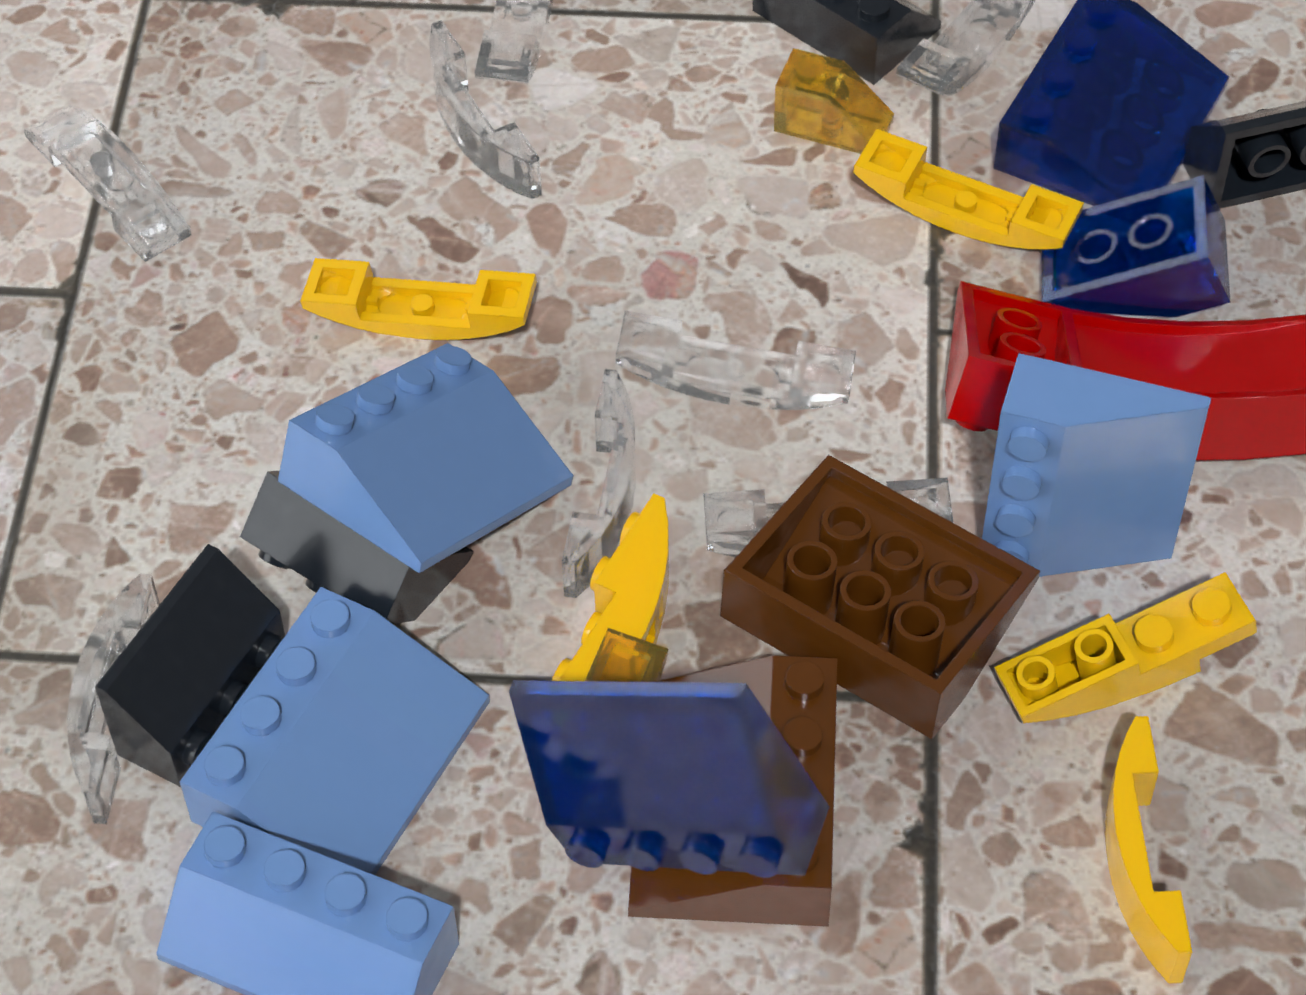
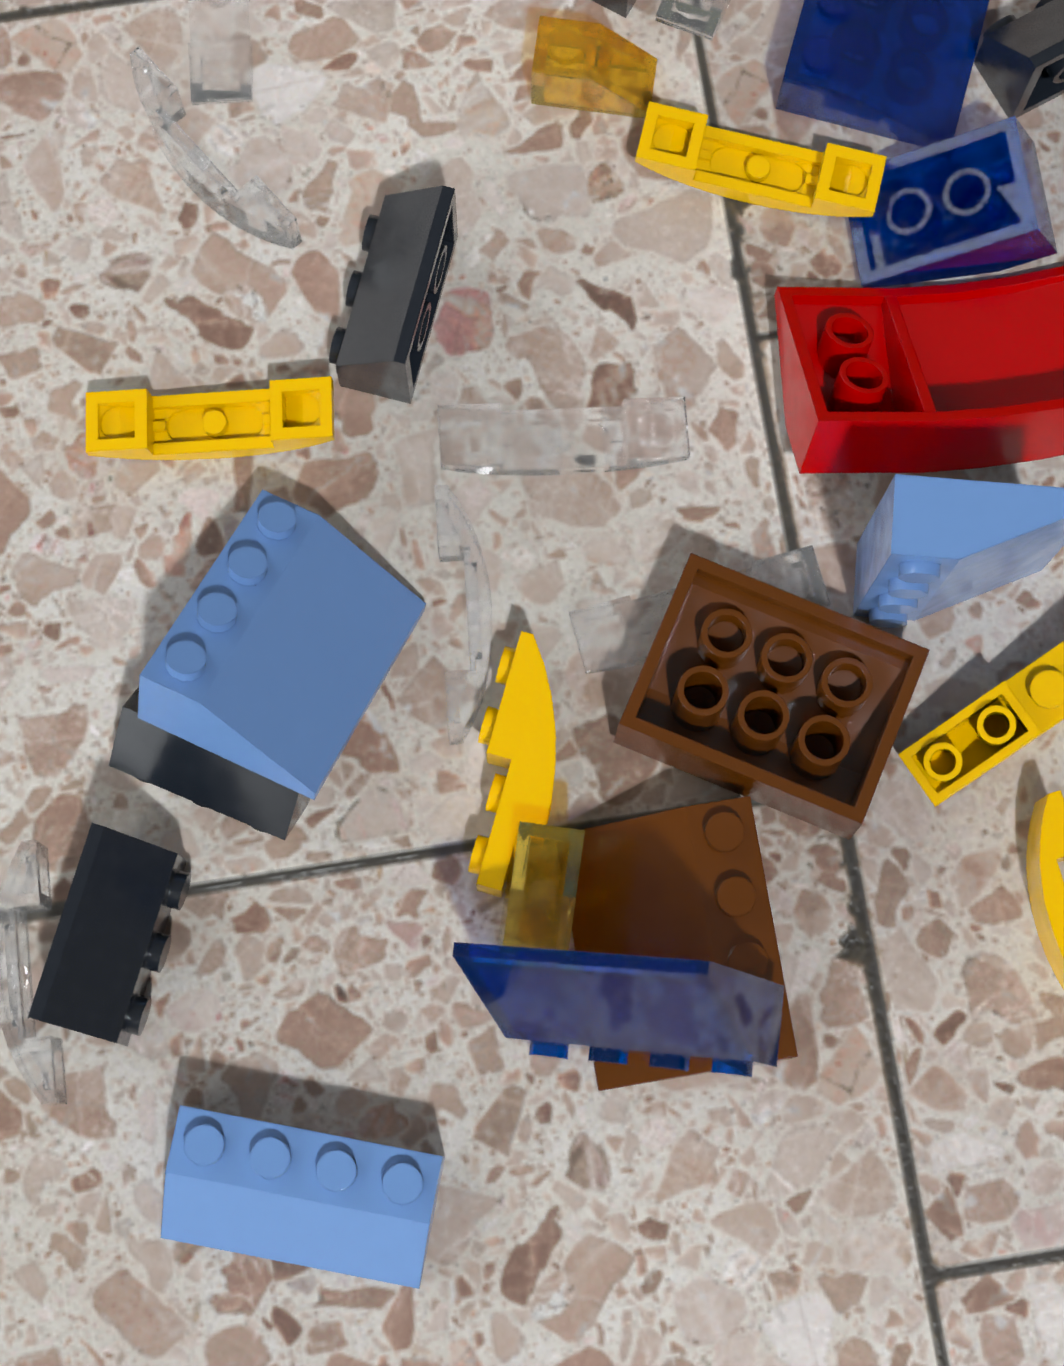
camera: 15 degrees left, 25 degrees up
(336, 736) = (273, 979): medium blue slope -> none
(615, 232) = (396, 293): none -> black slope

